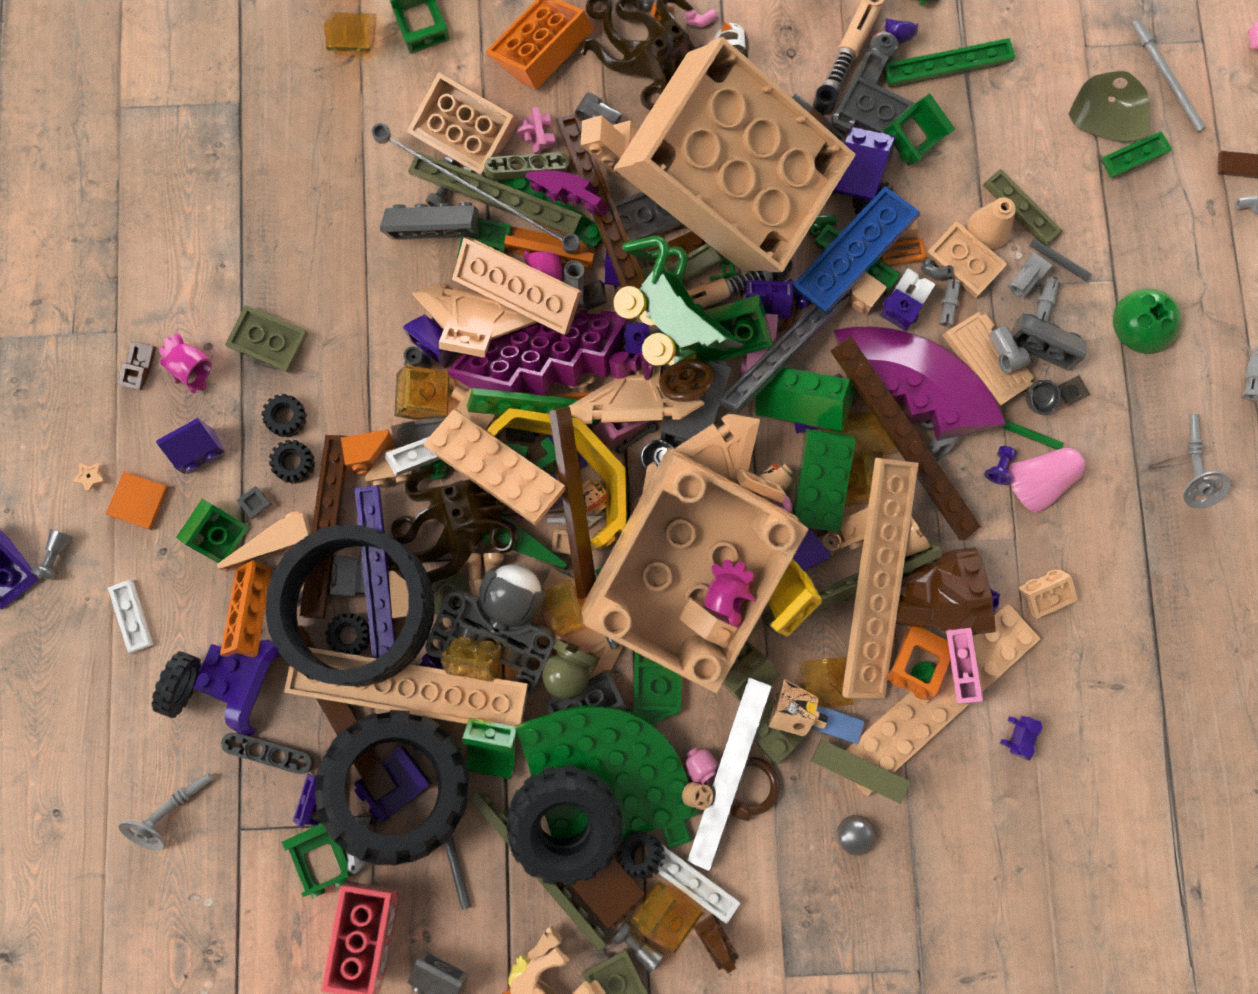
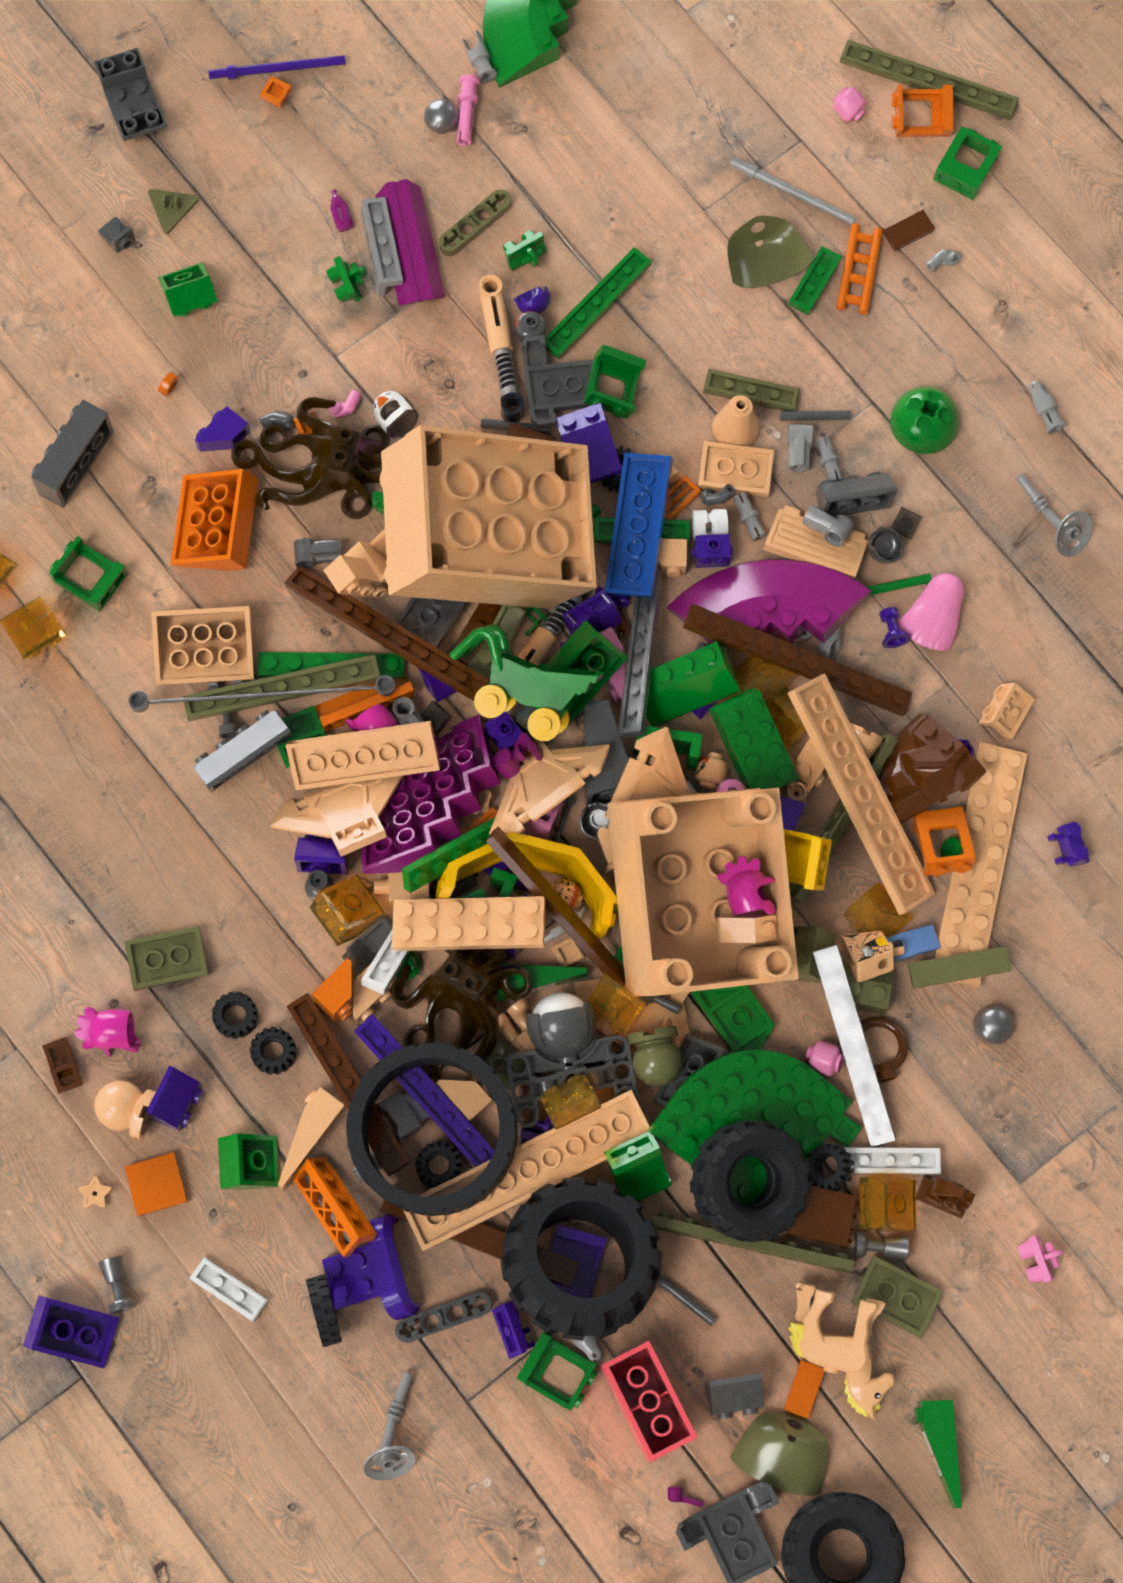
camera: 40 degrees left, 5 degrees down
(146, 424) = (124, 1107): none -> light nougat tile
(254, 502) = (266, 1110): dark grey plate -> none
(525, 162) = (286, 640): olive beam -> none
(533, 132) = (272, 607): bright pink hips -> none
(567, 187) = (346, 637): magenta slope -> none
(687, 380) = (579, 736): reddish brown plate -> none
(697, 795) = (841, 1083): light nougat wheel -> none
(766, 441) = (684, 743): none -> green panel
(766, 488) = (709, 783): light nougat plate -> none
(964, 666) = (982, 818): bright pink slope -> none
(1179, 182) = (871, 261): none -> orange bar

